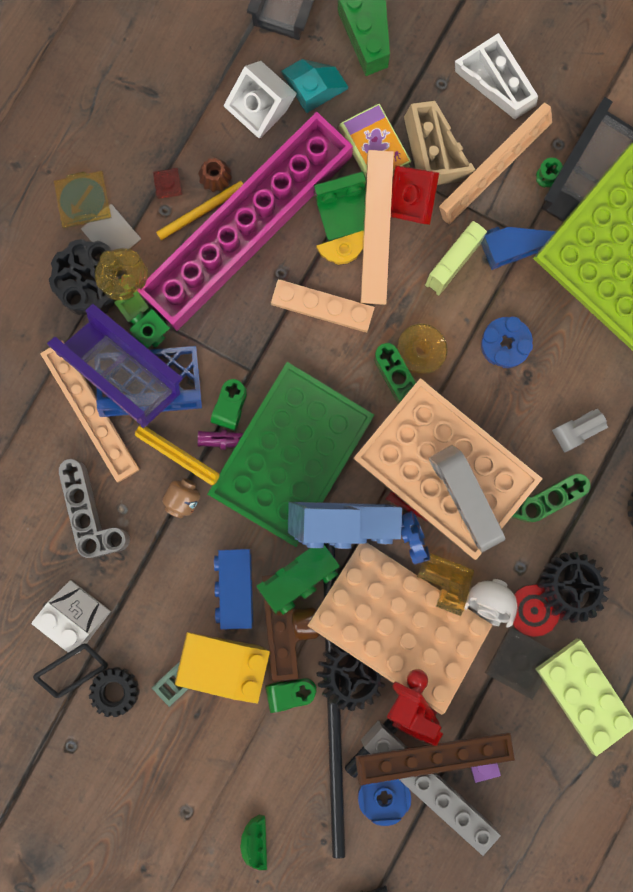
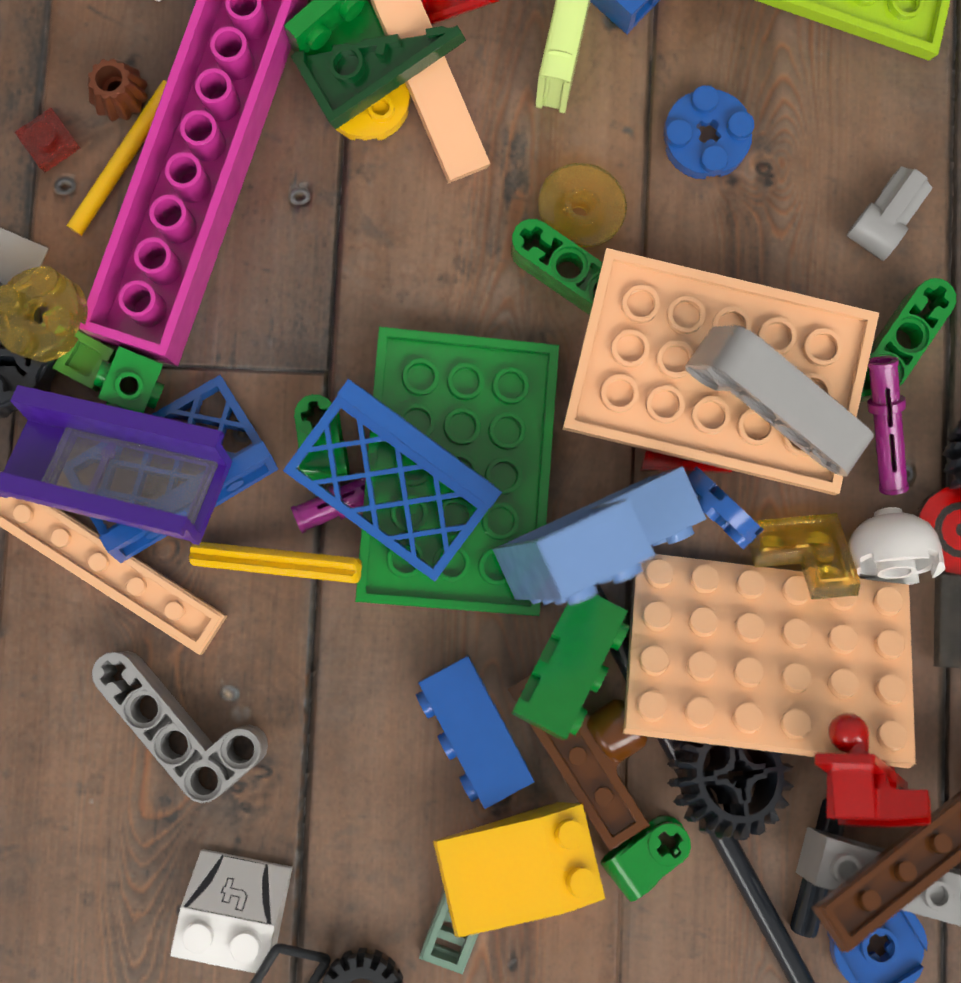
camera: 30 degrees left, 0 degrees up
(181, 498) = (316, 628): medium nougat head -> none
(275, 431) = (418, 448): none -> blue fence
(322, 306) = (390, 215): light nougat plate -> none
(337, 227) = (363, 73): none -> dark green wing
(529, 512) = (883, 376): none -> magenta pin

